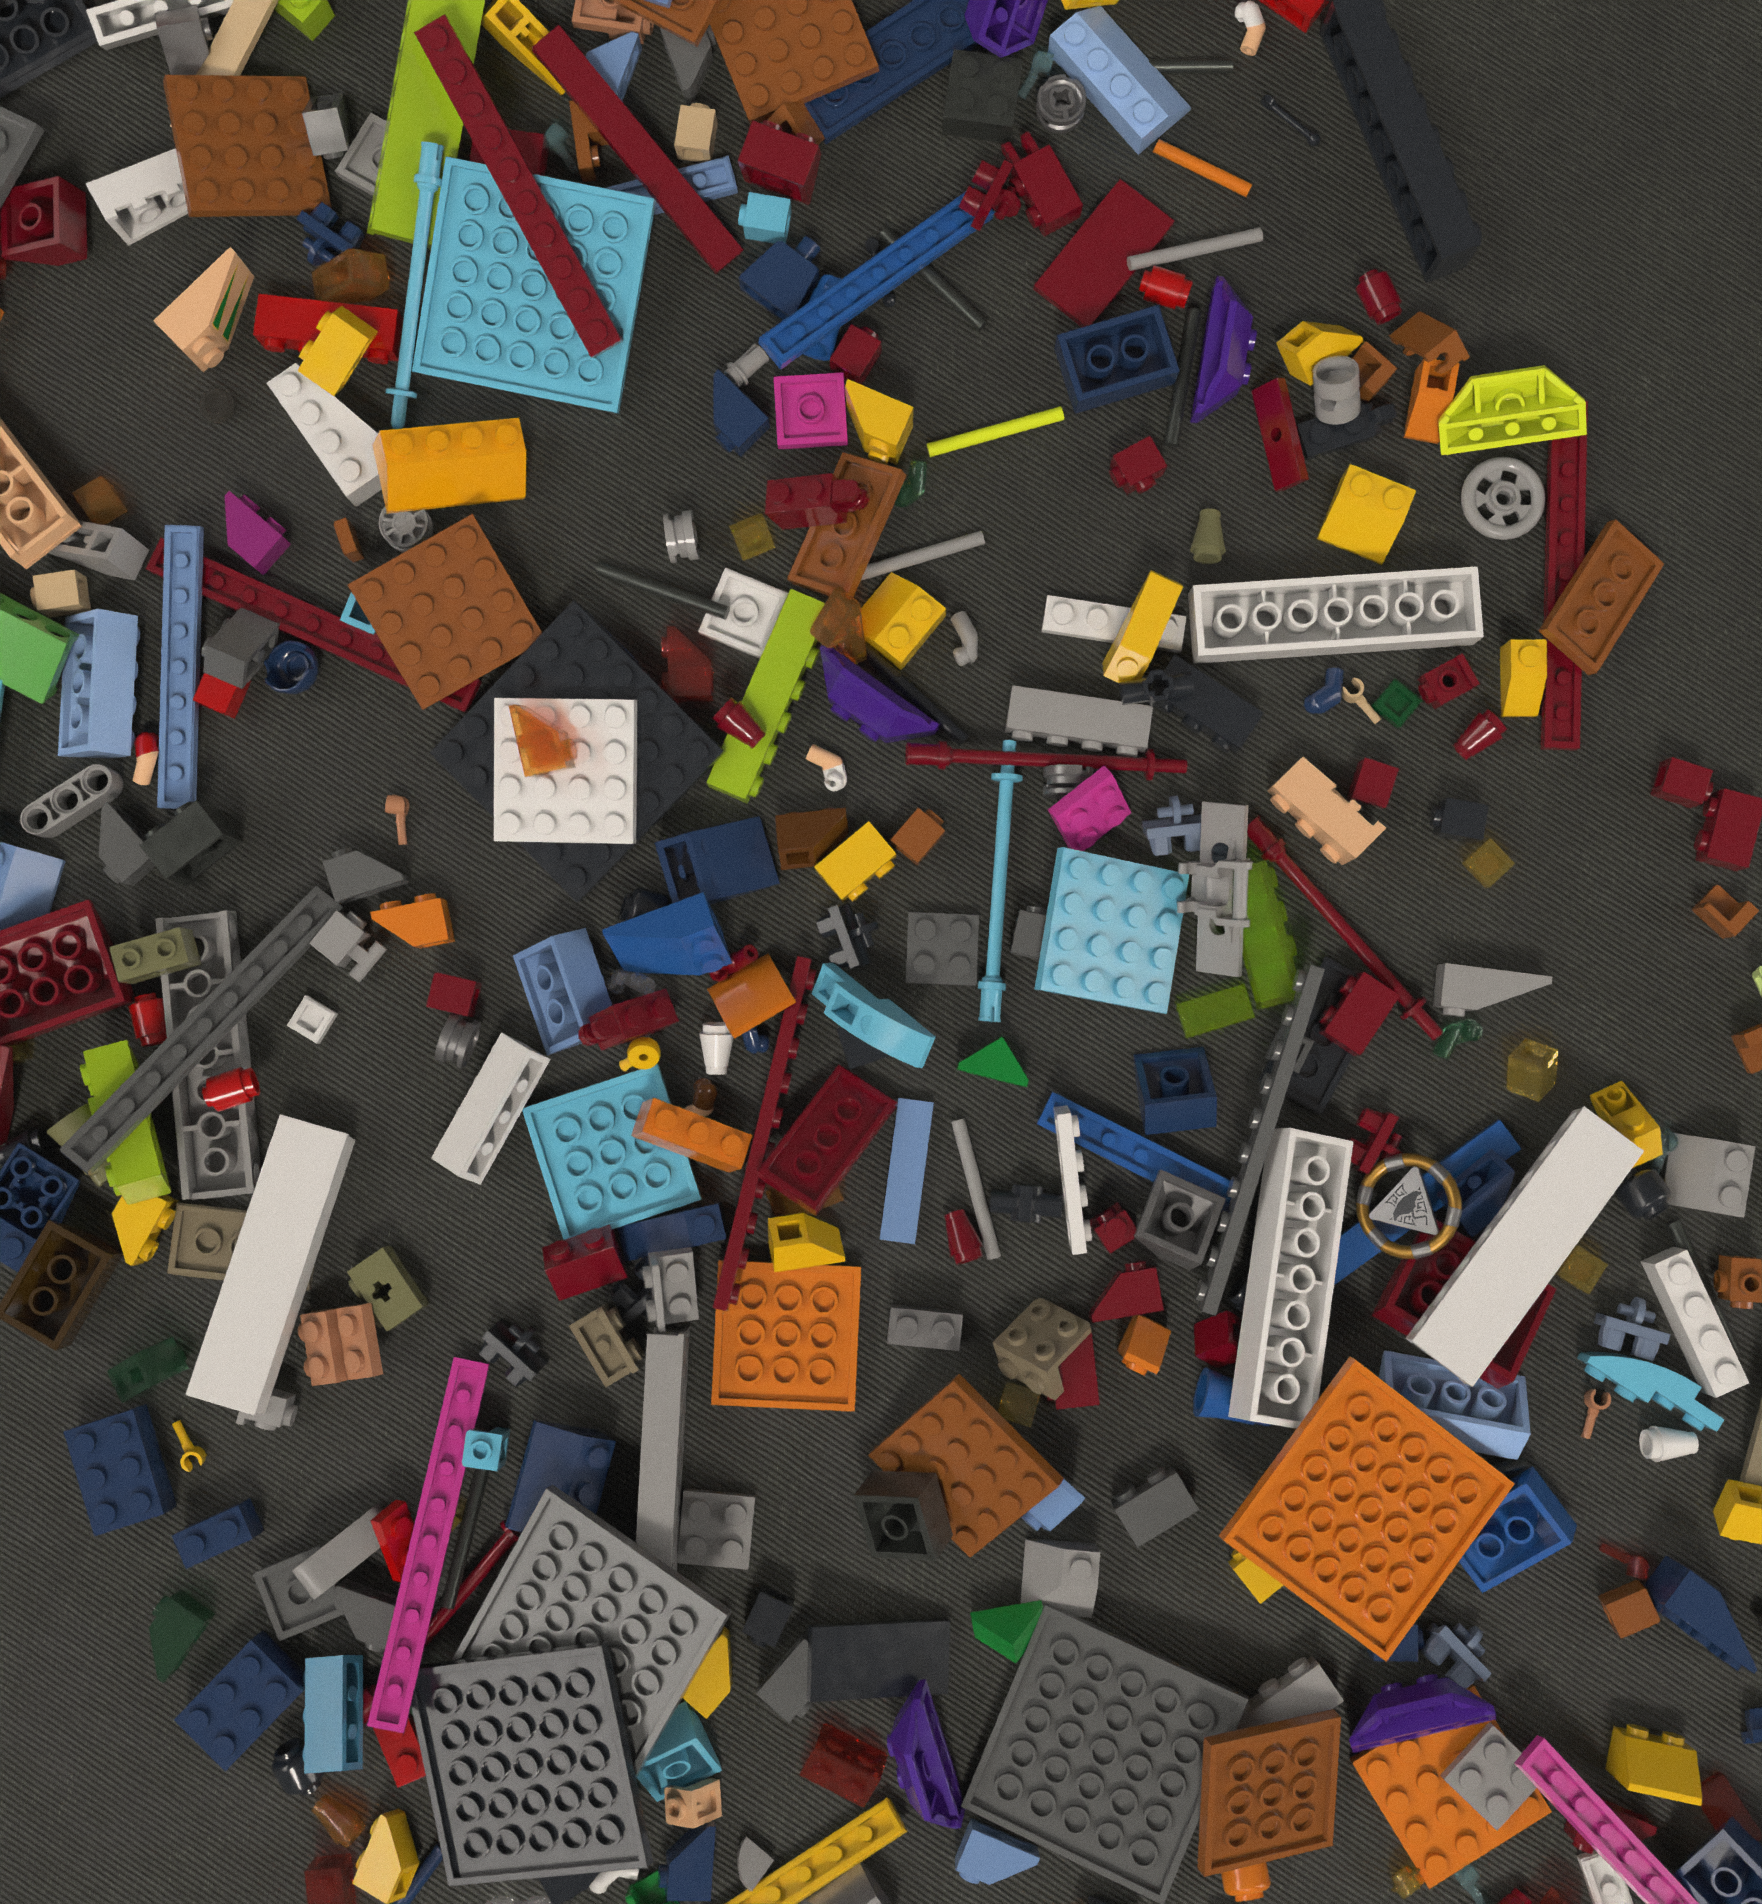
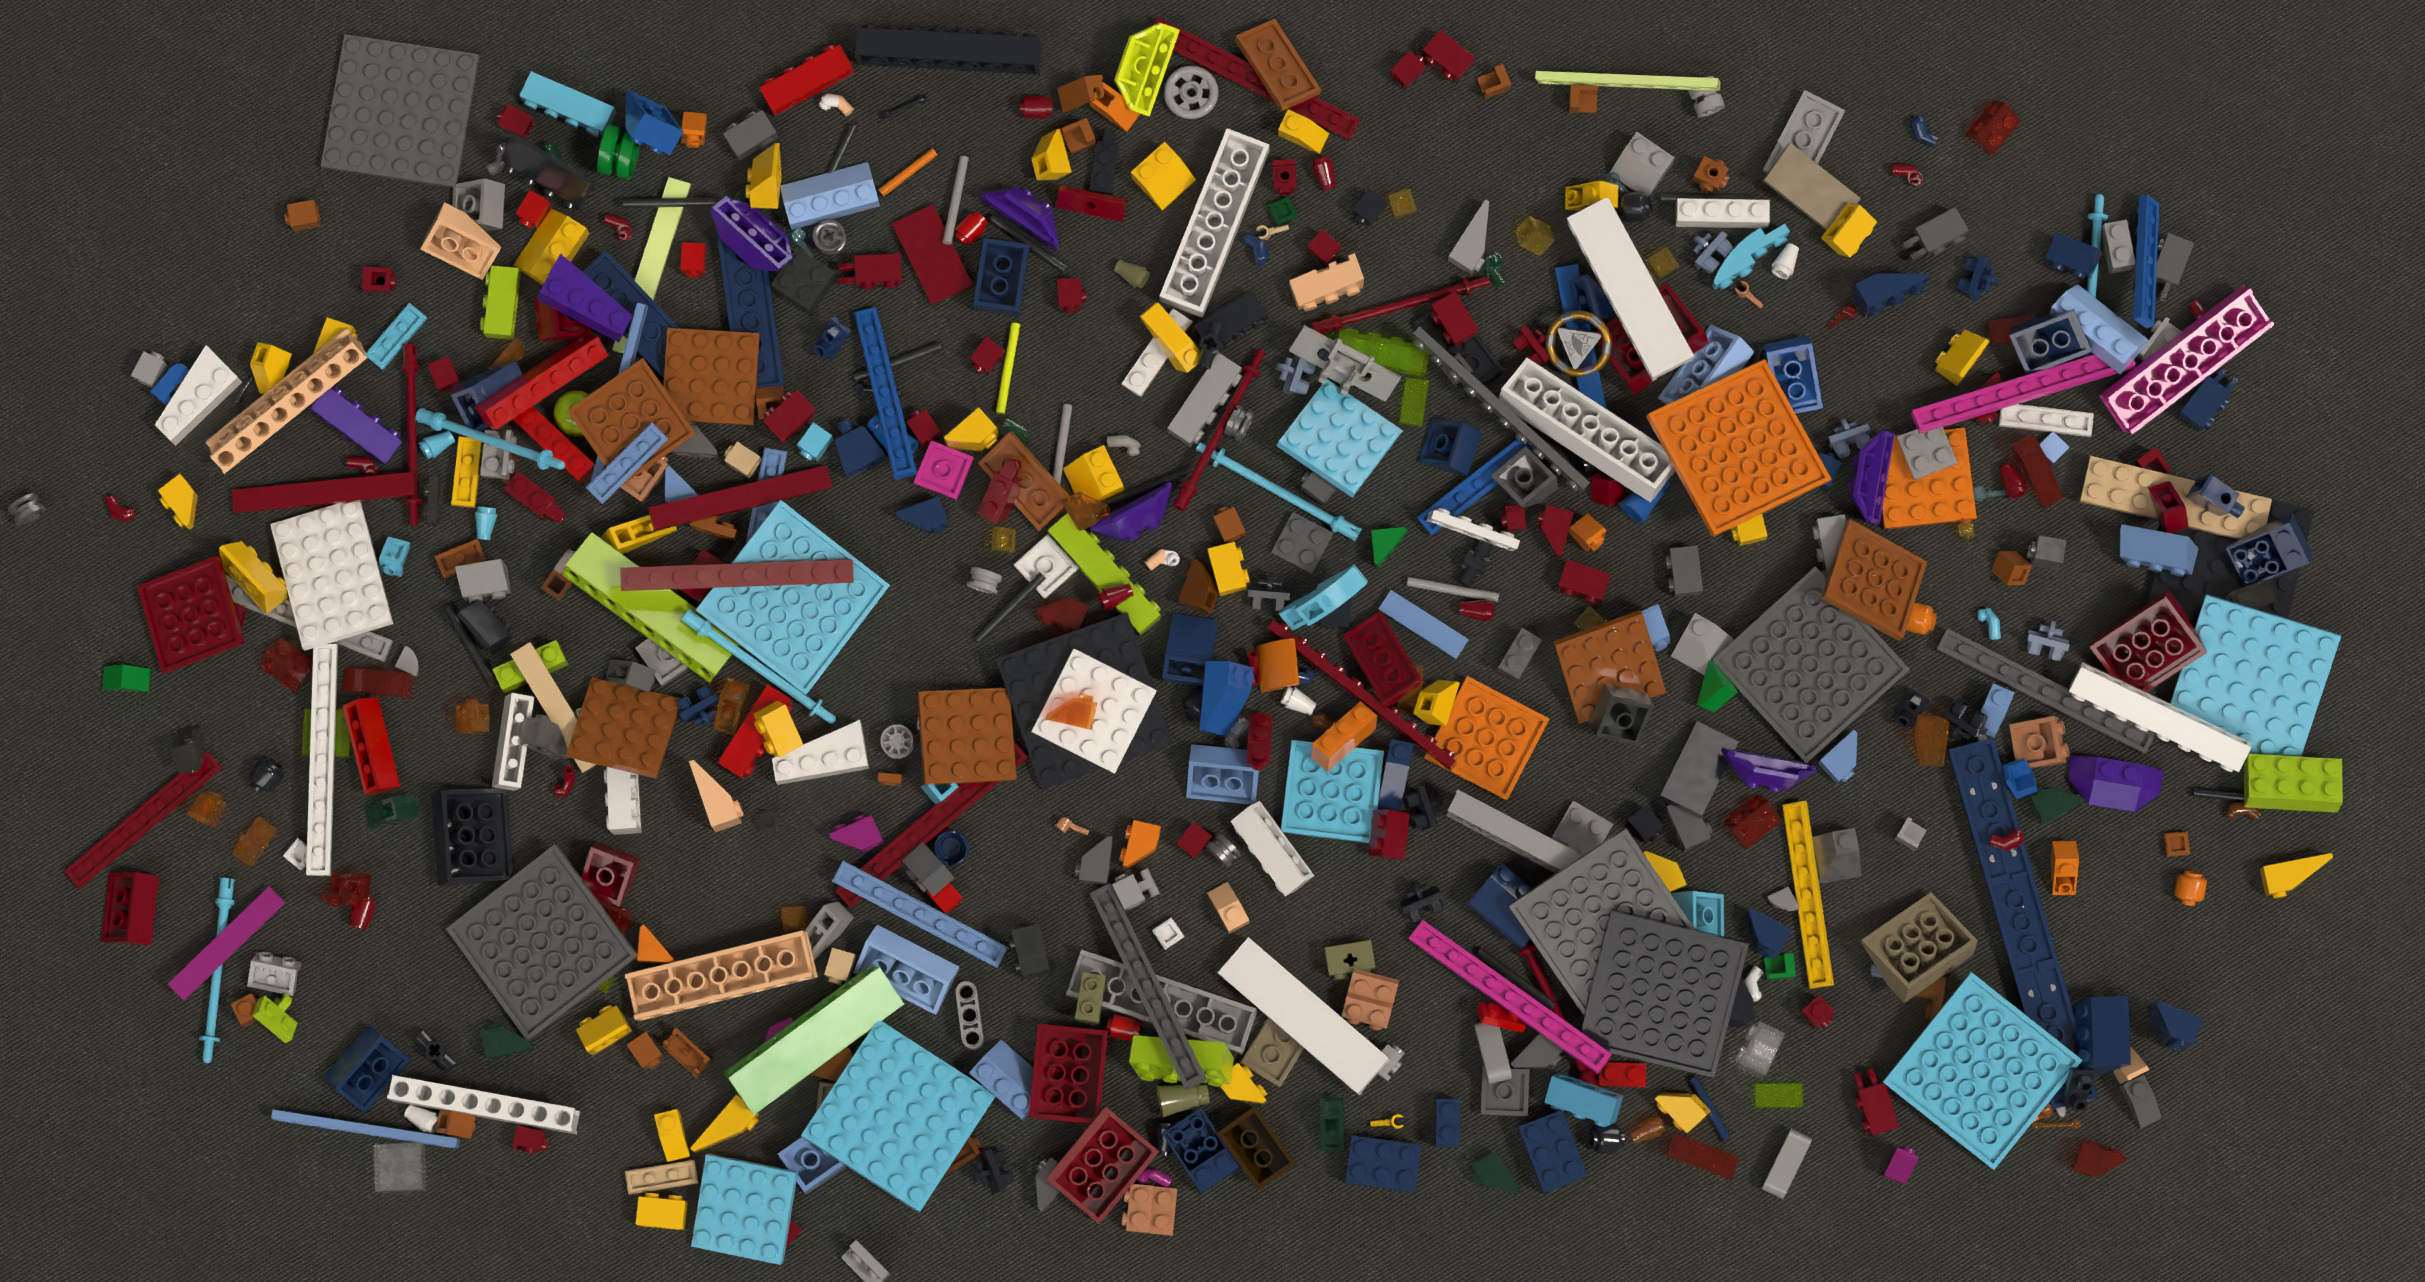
camera: 65 degrees left, 5 degrees down
(120, 847) = (1013, 996): dark grey slope -> none
(146, 755) = (962, 958): arm -> none
(147, 114) = (568, 782): none -> dark red arm
(231, 1088) = (1190, 990): red brick -> none
(382, 1086) = (1228, 907): none -> light nougat slope
(451, 465) = (879, 694): light orange slope -> none
(486, 1449) = (1470, 942): medium azure bracket -> none
(555, 137) = (702, 543): clear light blue hand -> none
(607, 1344) = (1443, 842): dark tan bracket -> none
(642, 1054) = (1282, 744): yellow piece -> none
(672, 1287) = (1427, 787): light grey bracket -> none
(693, 1804) = (1732, 917): light nougat bracket -> none
(746, 365) = (897, 495): light grey pin -> none
(919, 171) = (831, 339): none -> dark blue hips
(996, 393) = (986, 356): none -> dark red brick
(1003, 201) = (870, 302): dark red hips -> none
(1038, 1344) = (1559, 593): dark tan bracket -> none
(1090, 810) = (1262, 417): dark pink plate -> none
(1336, 390) = (1082, 158): light grey wheel -> none
(1629, 1609) = (1869, 329): dark orange panel -> none

